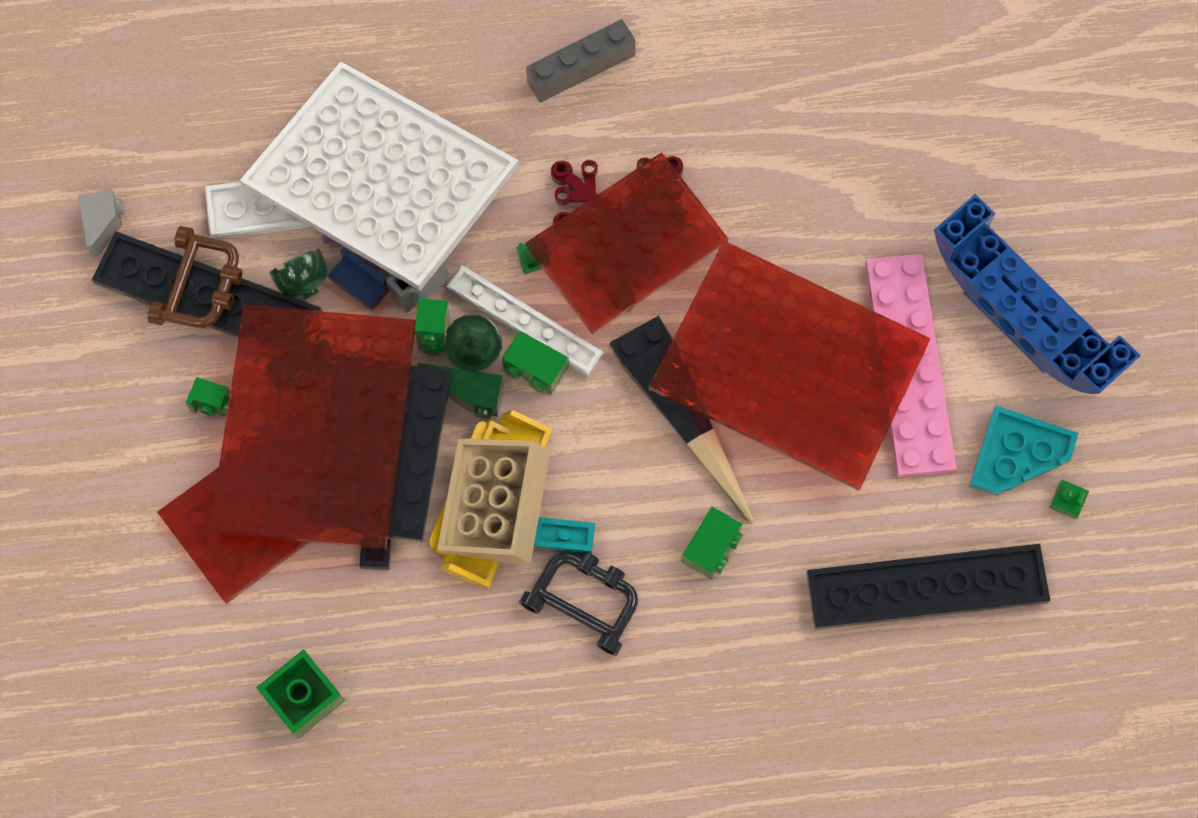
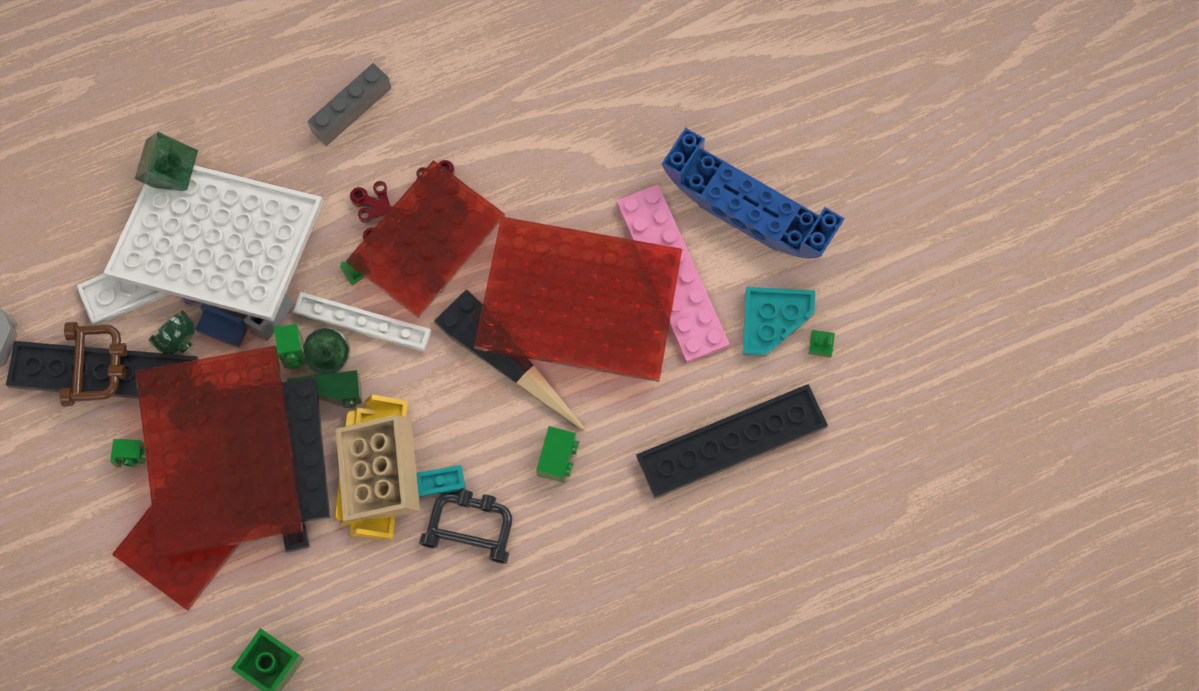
camera: 15 degrees left, 0 degrees up
(348, 72) = (166, 163): none -> clear green slope
(535, 363) = (379, 353): green brick -> none

